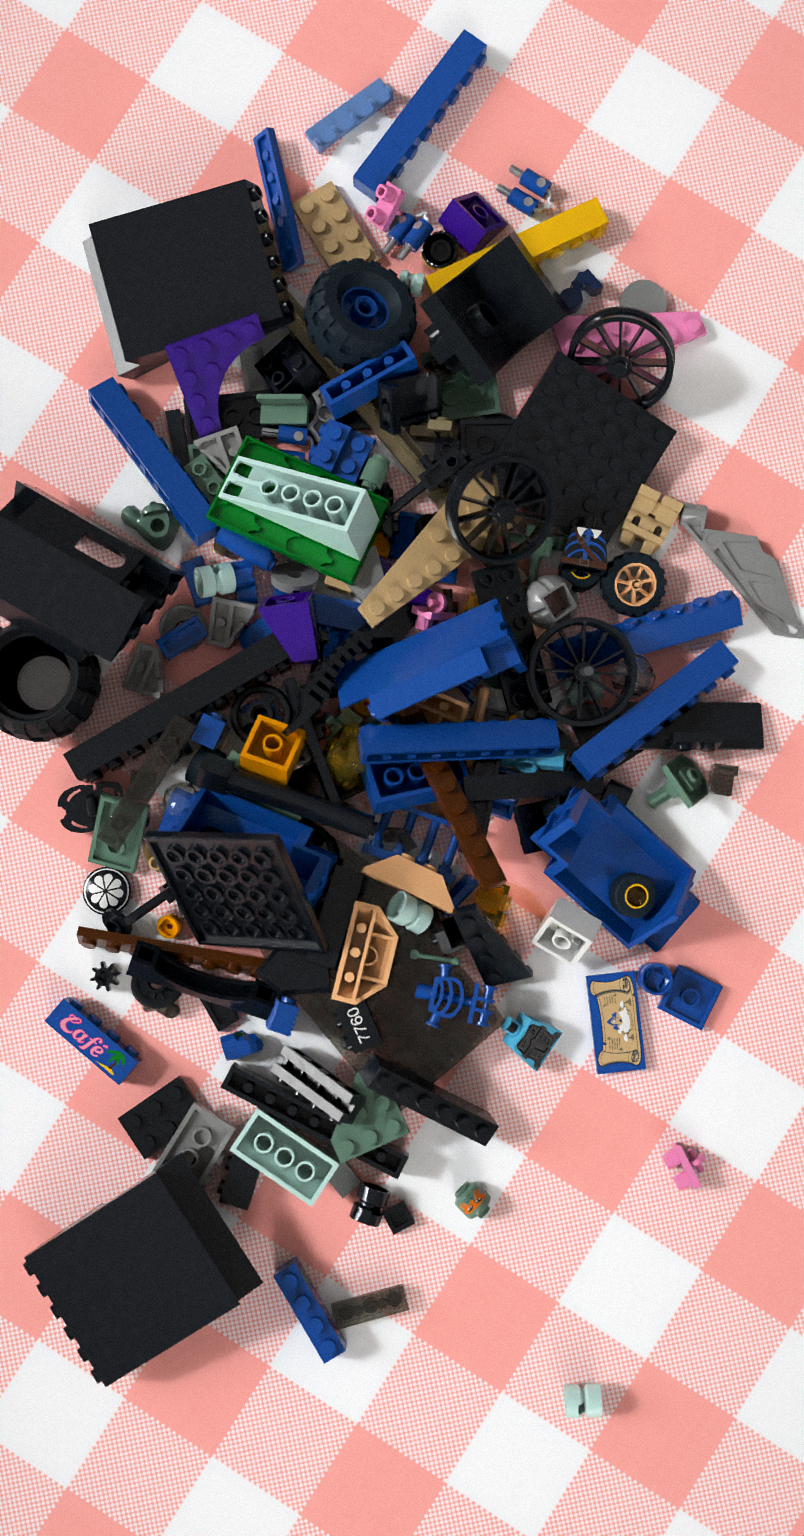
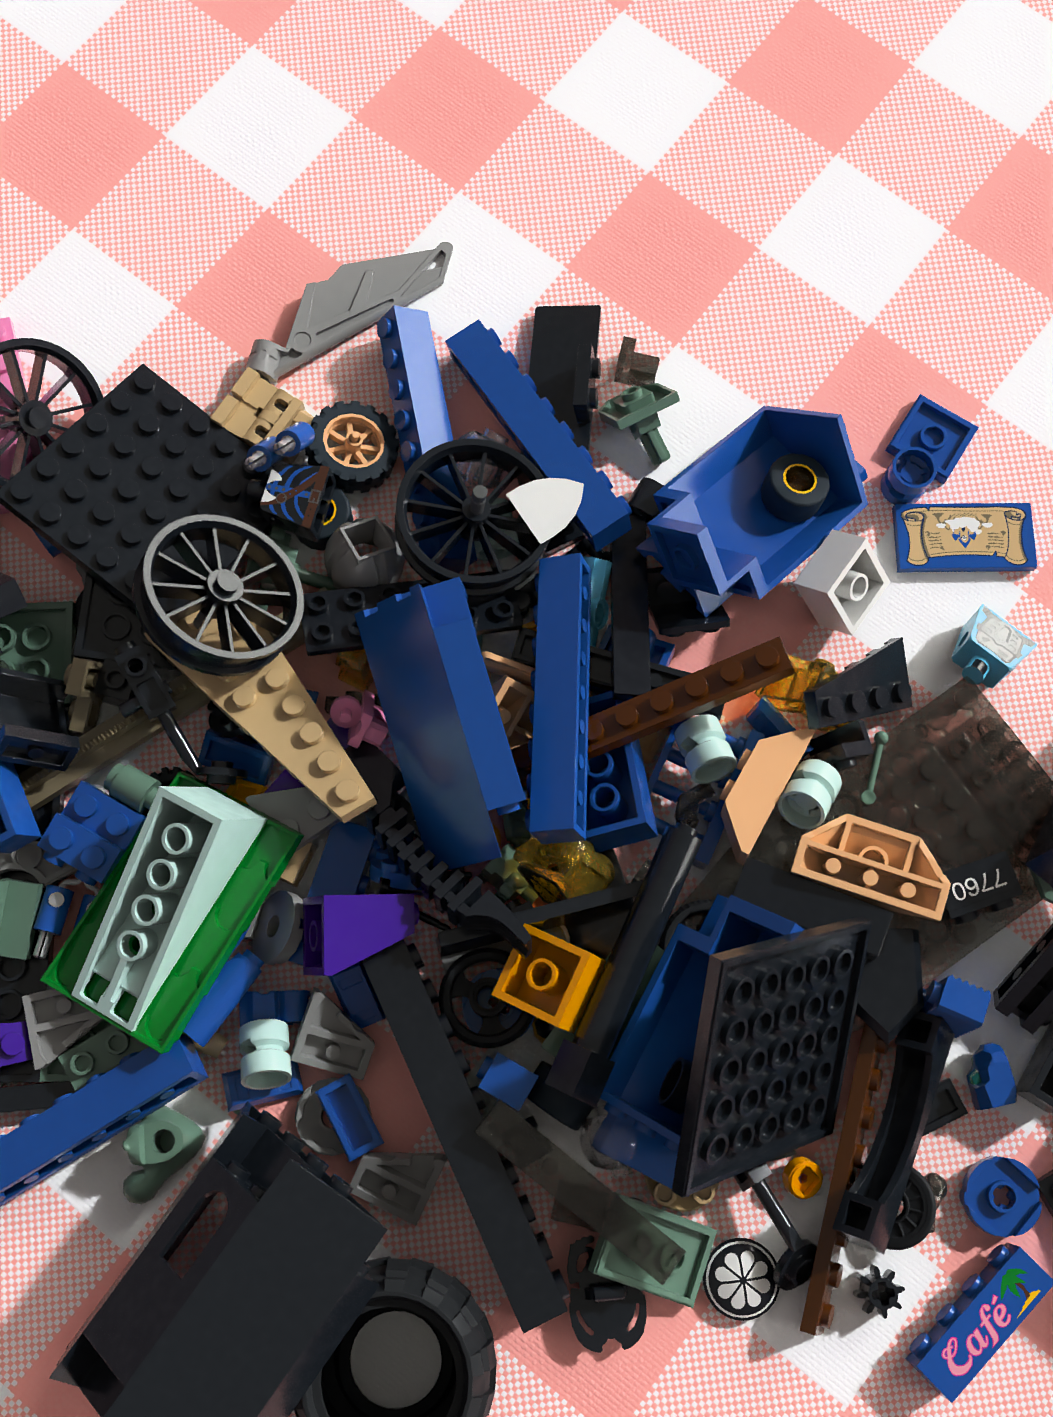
camera: 90 degrees left, 10 degrees down
(155, 1056) = (1022, 1192): none -> blue plate
(432, 993) = (930, 767): blue piece -> none
(434, 842) = (705, 749): none -> light aqua wheel
(593, 720) = (547, 505): none -> white sticker
(618, 533) = (274, 449): none -> blue piece

